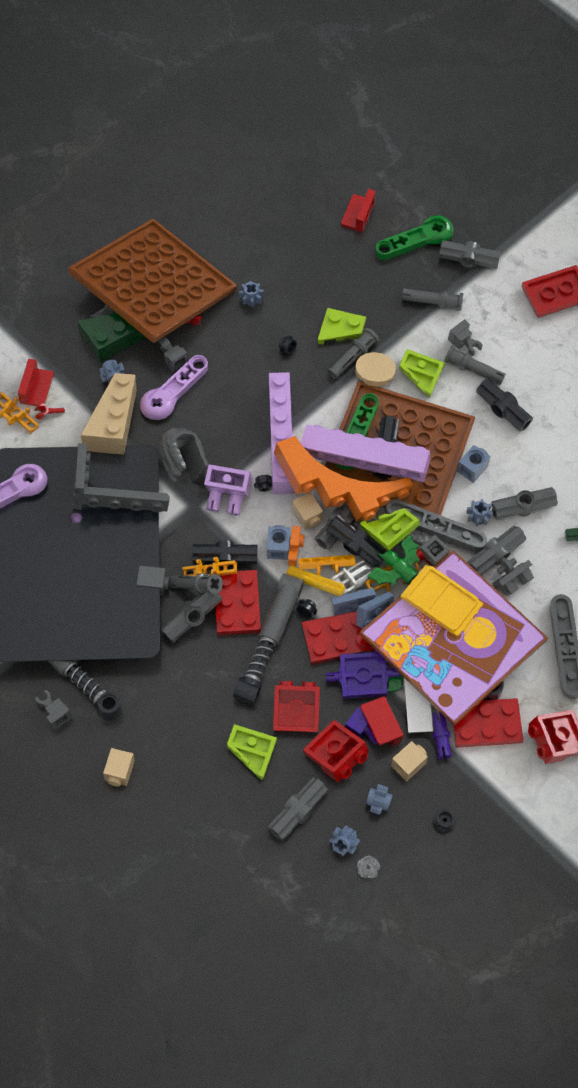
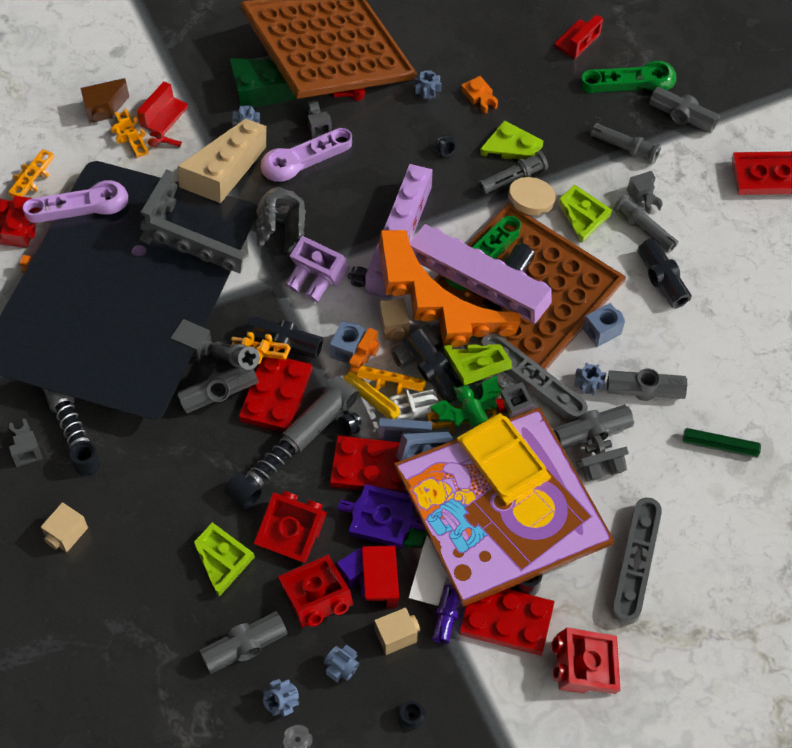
camera: 20 degrees right, 5 degrees down
(296, 287) = (479, 92): none -> orange plate

